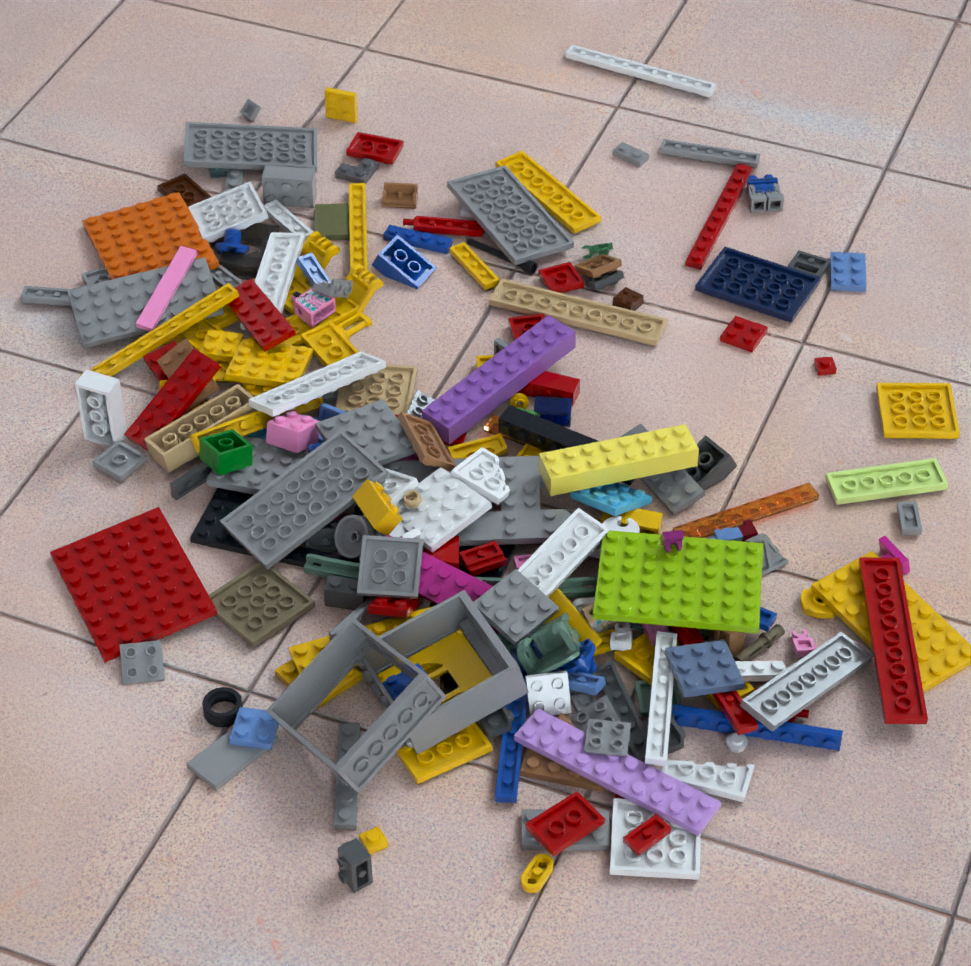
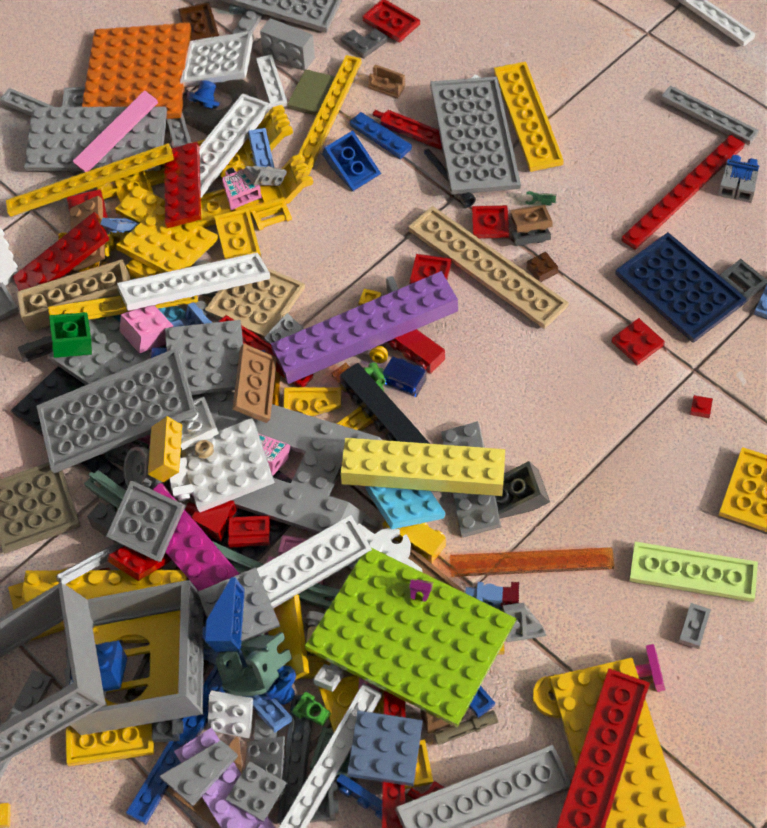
camera: 25 degrees right, 15 degrees up
(220, 356) = (119, 224): none -> medium blue plate
(474, 266) = (415, 182): yellow plate -> none
(483, 475) = (288, 439): white plate -> none
(520, 612) = (225, 621): none -> blue slope
(548, 739) = (199, 772): none -> light grey wing
(621, 667) = (309, 707): none -> bright green plate
(631, 154) = (631, 93): light grey plate -> none
(760, 670) = (447, 760): white plate -> none
(801, 644) = (509, 744): bright pink plate -> none

